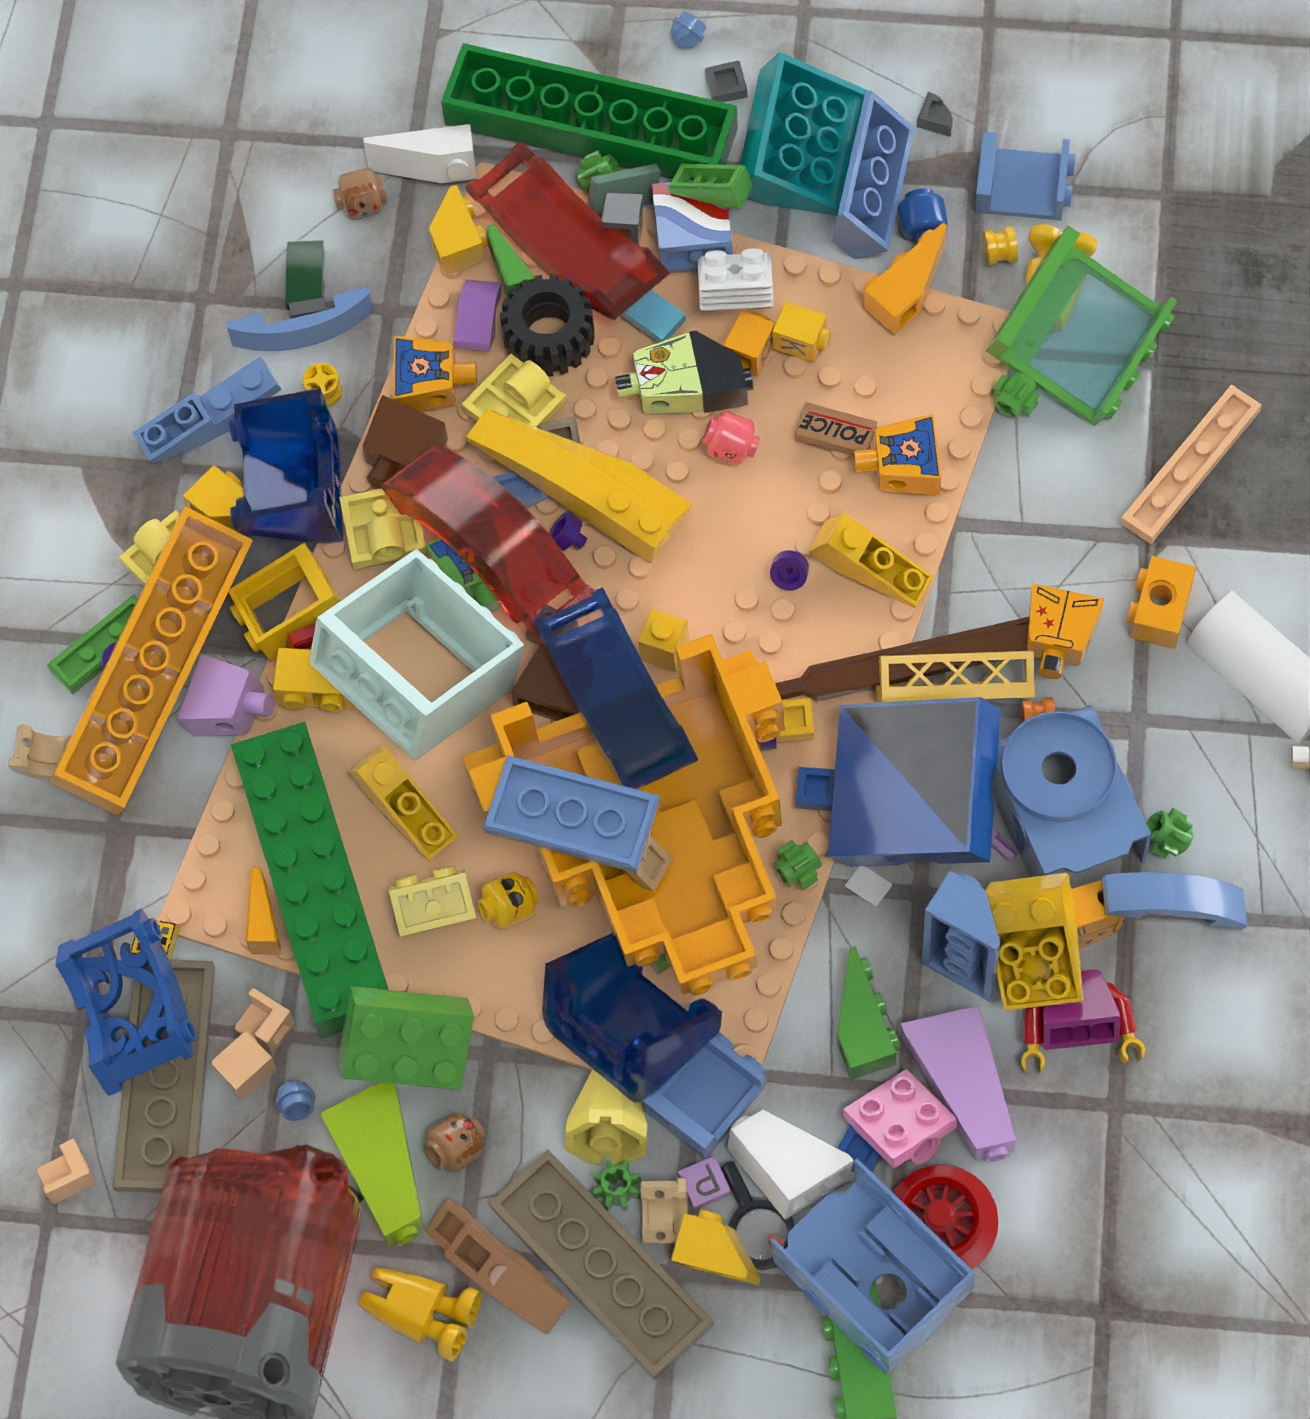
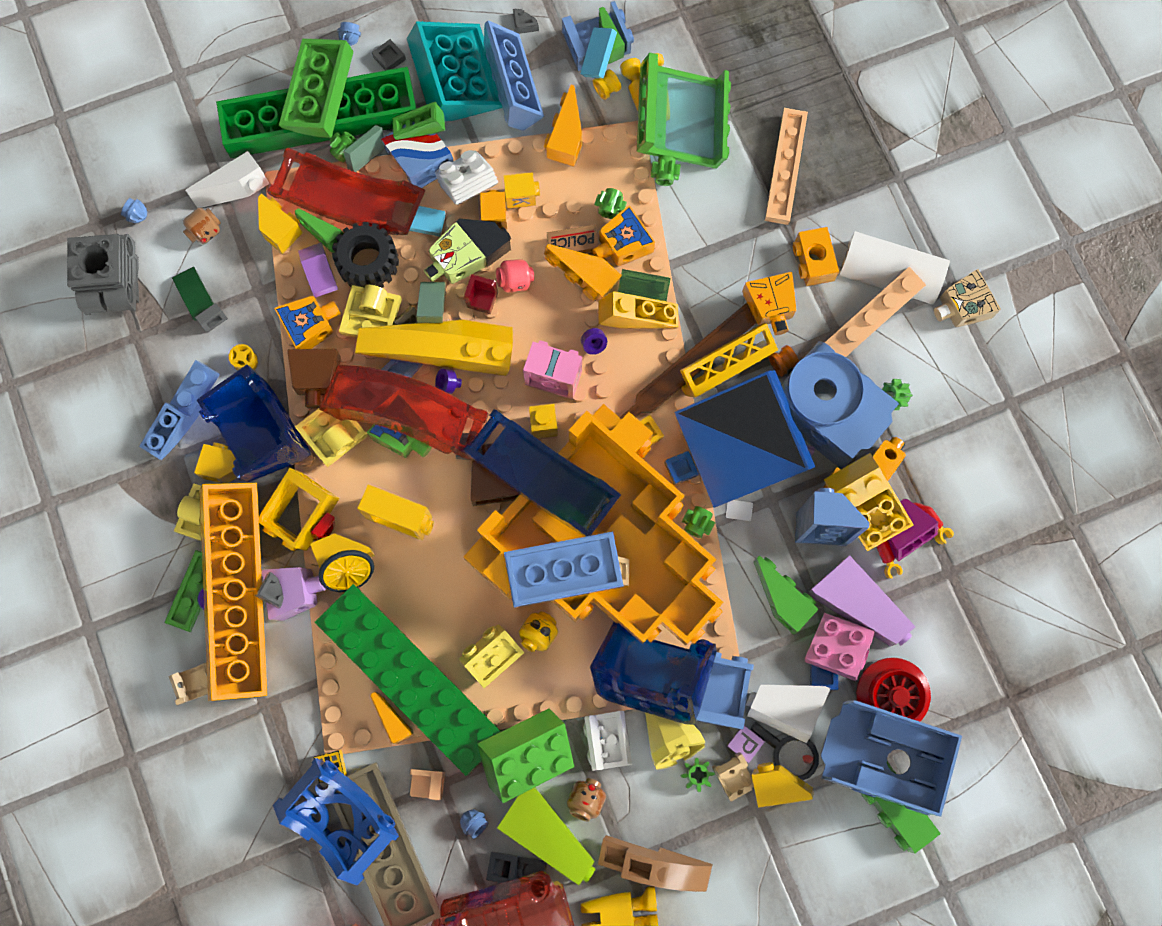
camera: 35 degrees left, 10 degrees up
(198, 681) = (271, 591): none -> dark grey tile
(205, 196) = (103, 272): none -> dark grey piece
(244, 1065) = (430, 819): light nougat panel -> none
(285, 137) = (134, 211): none -> medium blue plate
(302, 331) = (212, 330): medium blue slope -> none
(308, 698) = (345, 569): none -> yellow wheel
(402, 802) = (438, 601): yellow slope -> none
(406, 652) = (396, 512): none -> yellow window
(451, 617) = (409, 471): light aqua window -> none
(522, 1083) = (607, 740): none -> white bracket
(601, 80) = (317, 87): none -> bright green slope
(601, 421) = (431, 302): none -> sand green tile
(601, 1264) = (714, 828): dark tan plate -> none
(624, 213) = (374, 164): panel -> none
(672, 441) = (481, 294): none -> dark red panel
(711, 578) = (553, 369): none -> bright pink container
(832, 476) = (588, 271): none -> light orange slope
(901, 530) = (644, 285): none -> clear green tile
(911, 400) = (610, 203): none -> bright green gear
(921, 212) = (551, 85): blue head -> none
(1006, 198) = (598, 52): none -> medium azure tile
(1036, 193) = (618, 46): none -> bright green slope
(1174, 895) = (923, 435): medium blue slope -> none
(1196, 713) = (876, 312): none -> light nougat plate

